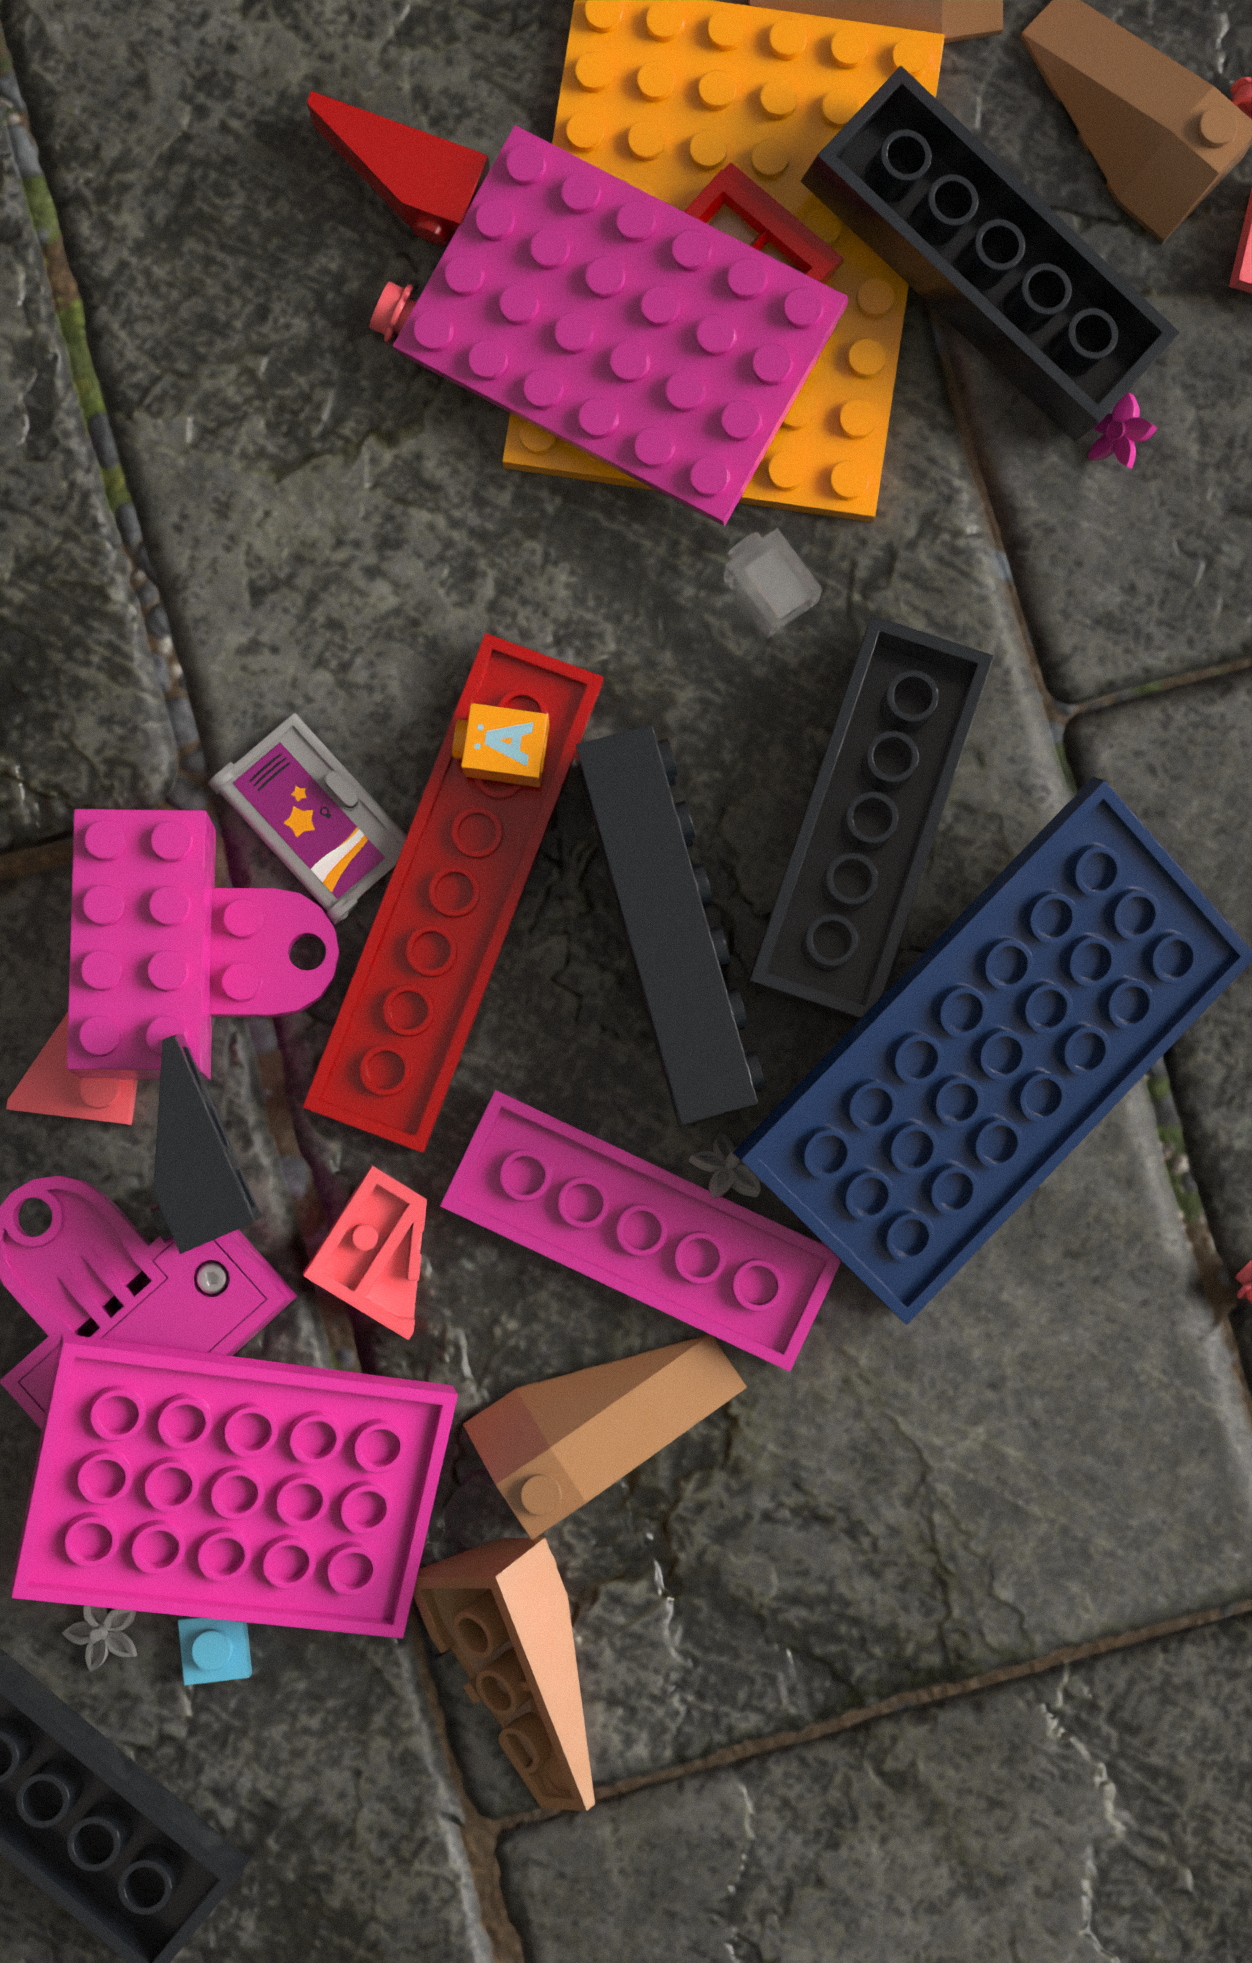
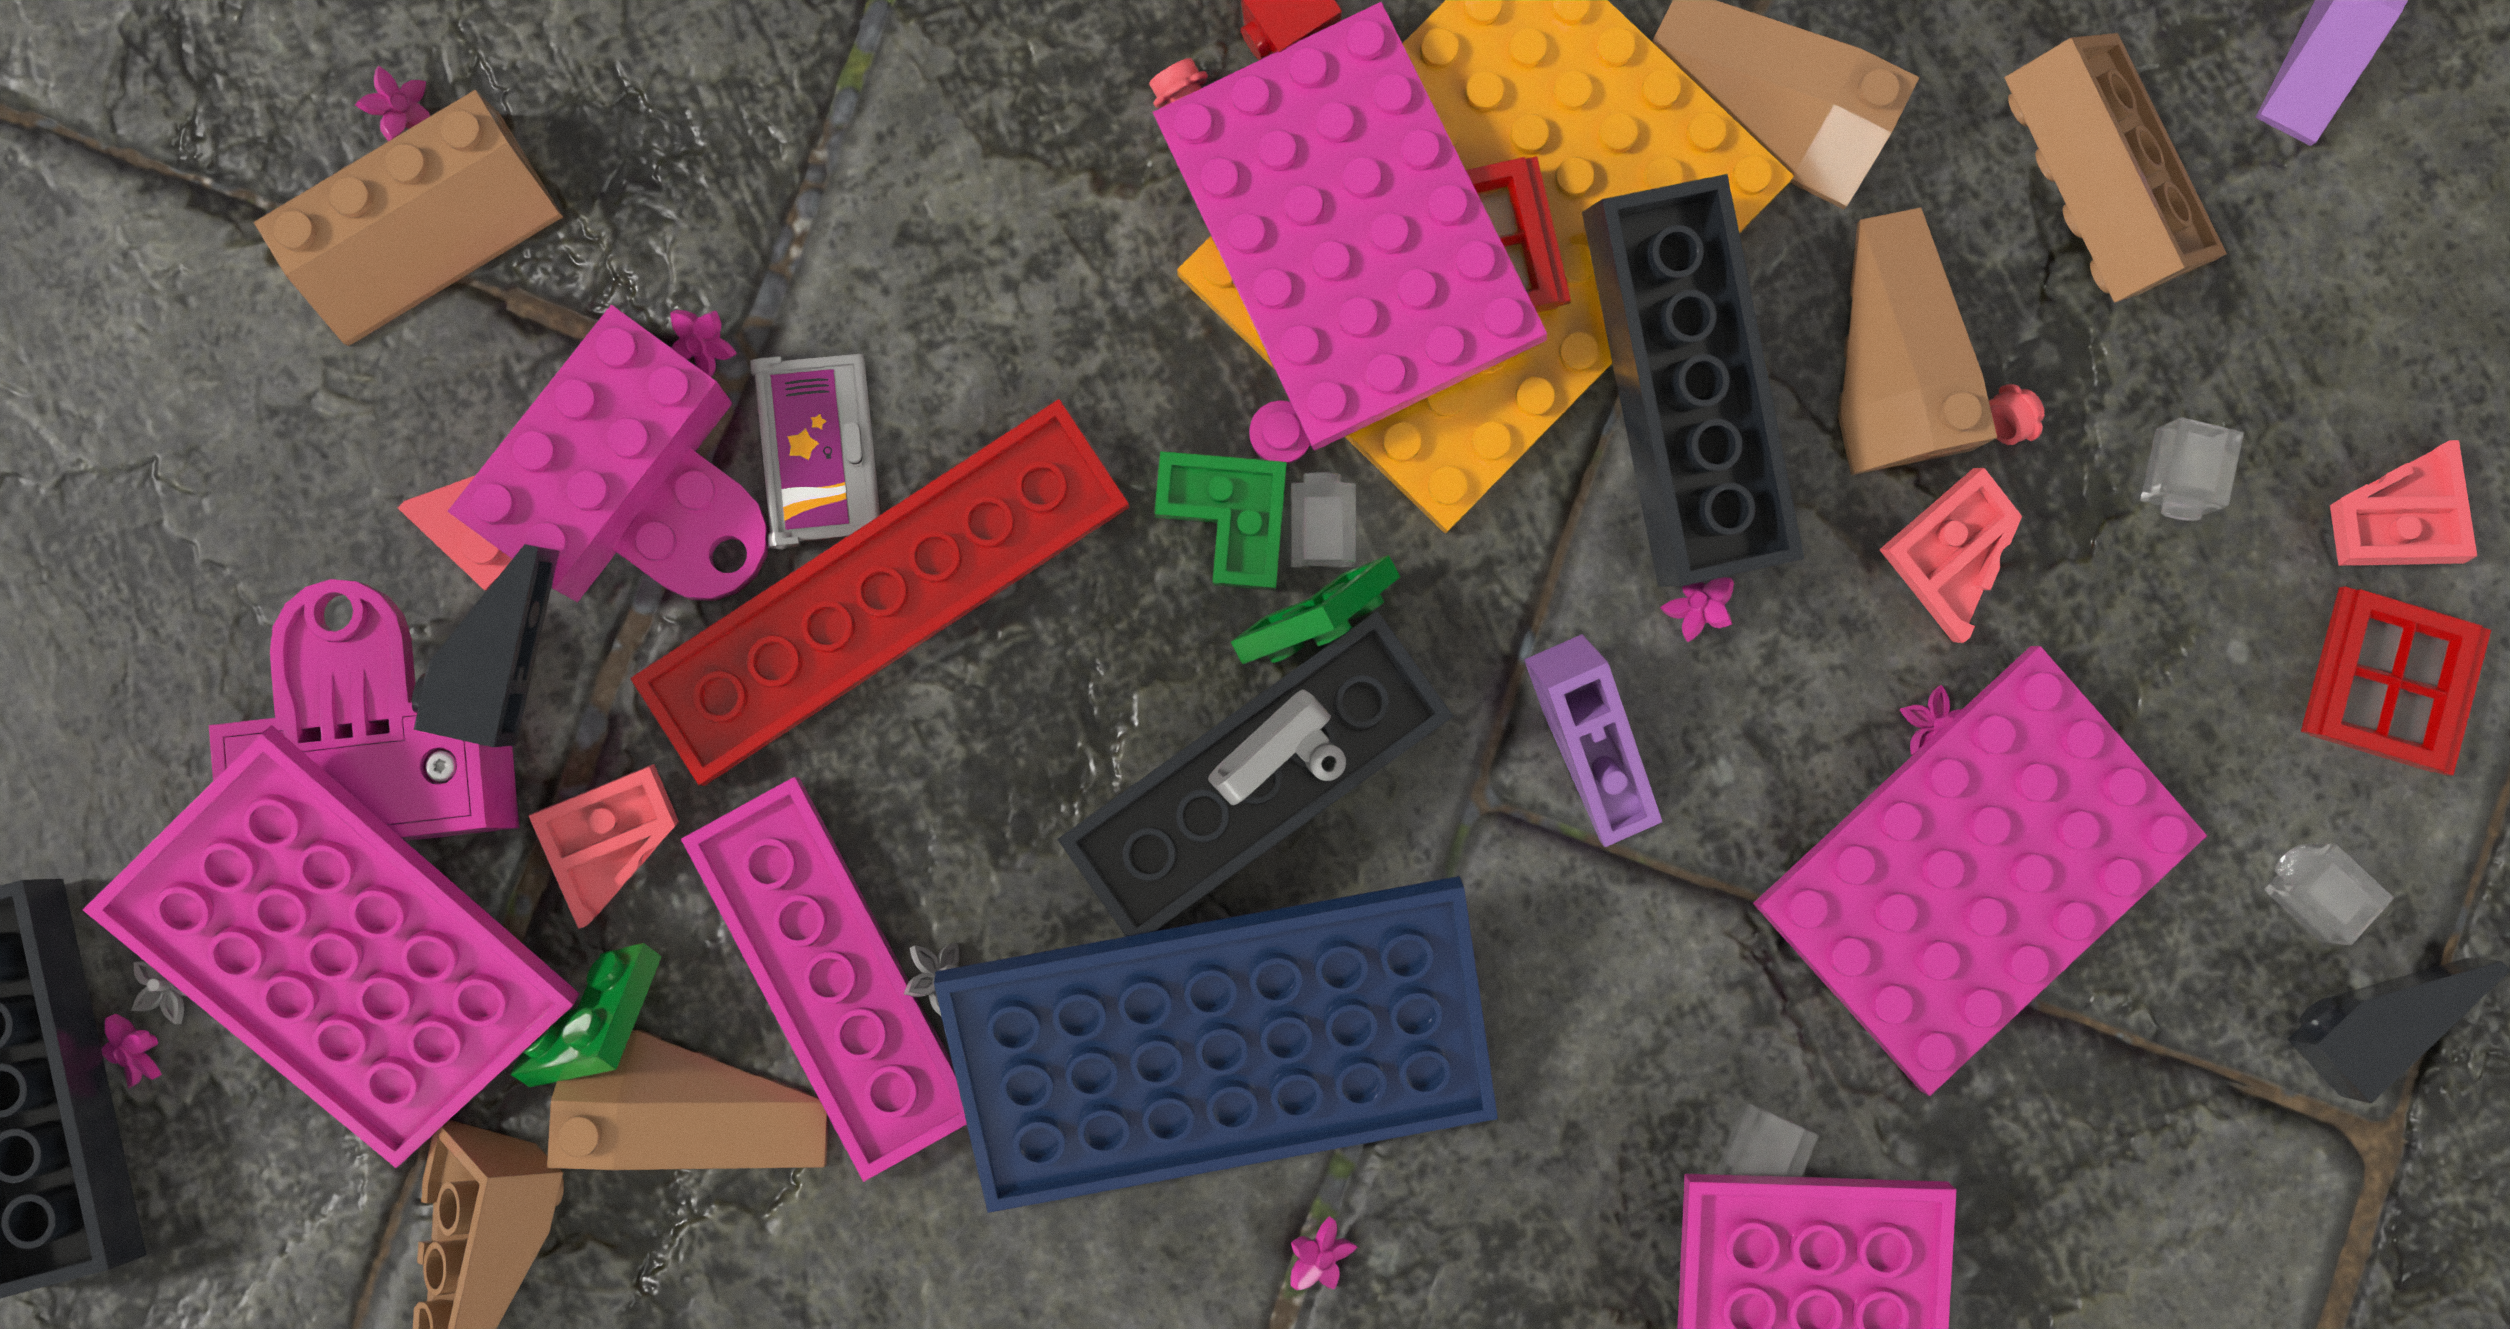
camera: 35 degrees right, 0 degrees up
(111, 1703) = (127, 1049): none -> dark pink plant
(153, 791) = (700, 339): none -> dark pink plant
(213, 1650) = (238, 1071): medium azure plate -> none
(489, 1403) = (596, 1032): none -> green plate
(502, 744) = (1000, 500): light orange brick -> none
(666, 925) = (1023, 747): black brick -> none
(682, 535) = (1278, 433): none -> dark pink plate
(689, 609) = (1241, 498): none -> green plate
(829, 653) = (1319, 617): none -> green plate
(873, 762) = (1288, 731): none -> light grey piece
(1112, 597) = (1594, 738): none -> medium lavender slope
(1195, 1168) = (1319, 1257): none -> dark pink plant

